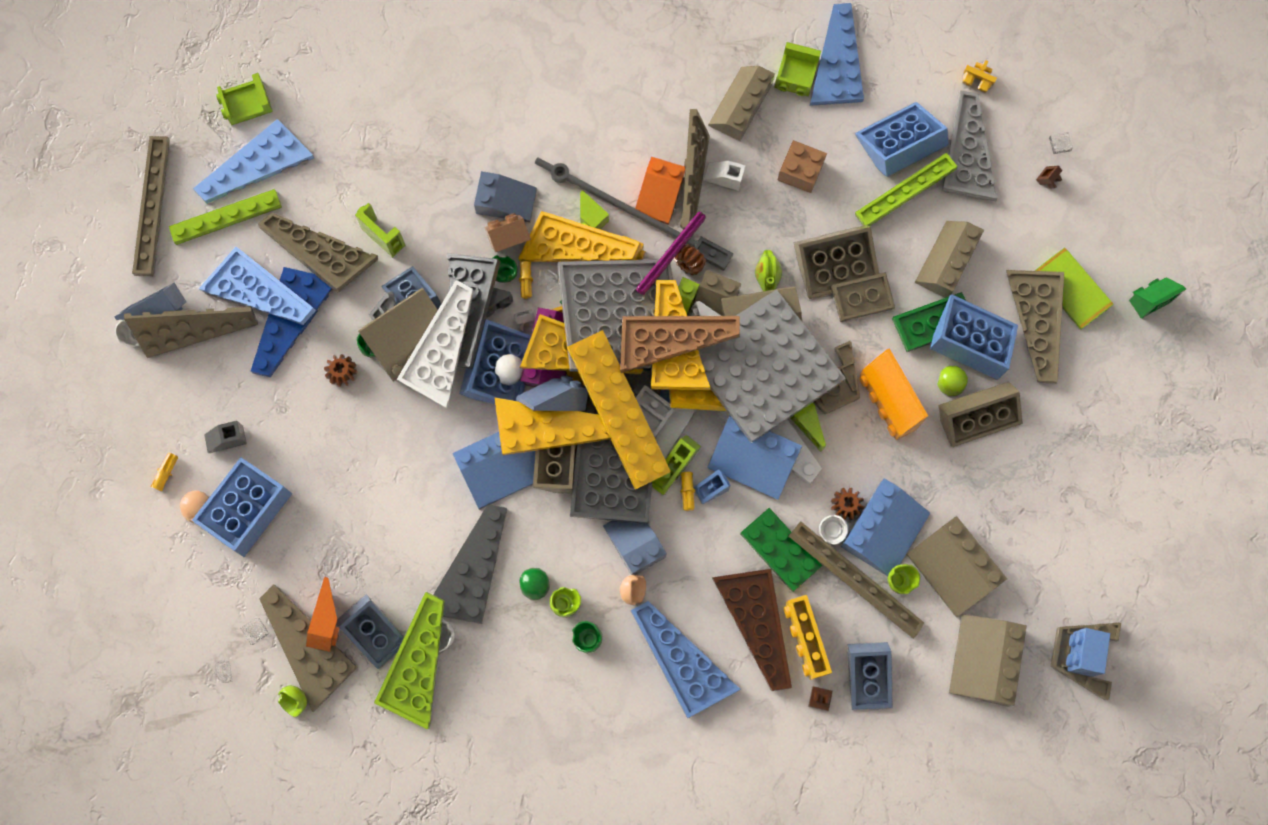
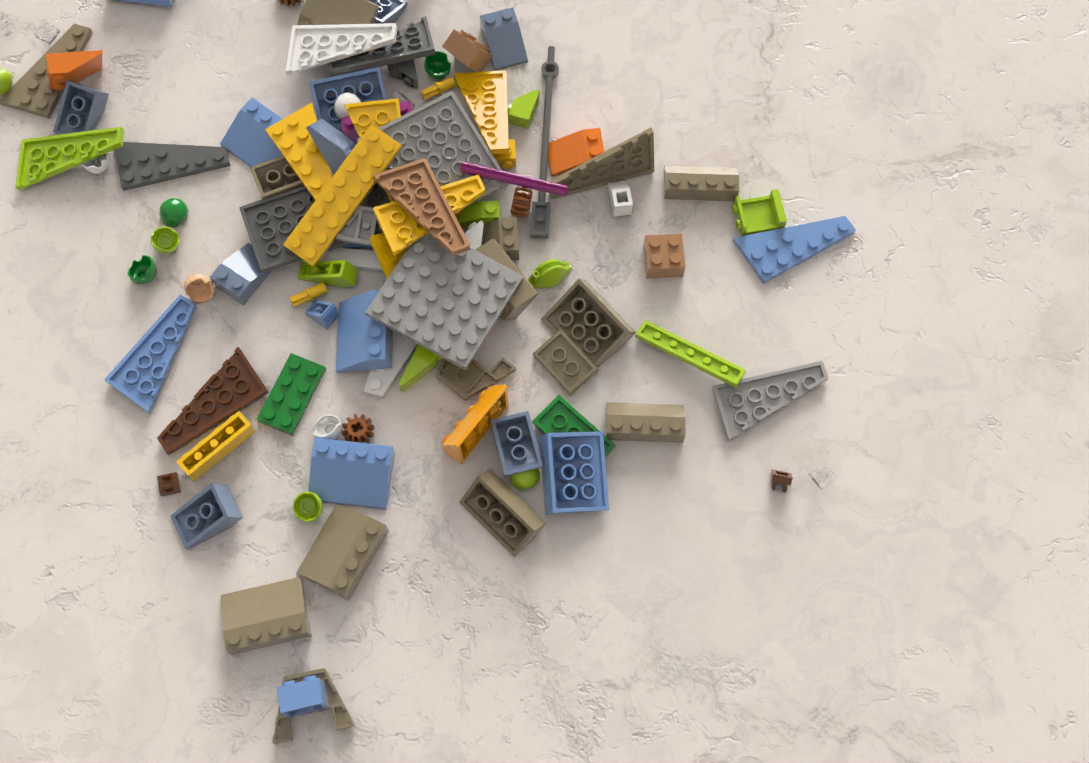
camera: 65 degrees right, 5 degrees down
(856, 580) = (288, 467): dark tan plate -> none
(903, 138) = (742, 330): medium blue slope -> none
(930, 371) = (516, 443): none -> sand blue slope
(971, 73) = (846, 363): yellow hips -> none
(1039, 307) = (632, 525): dark tan wing -> none
(1081, 295) = (675, 548): lime slope -> none
(1155, 296) = (707, 627): green slope -> none

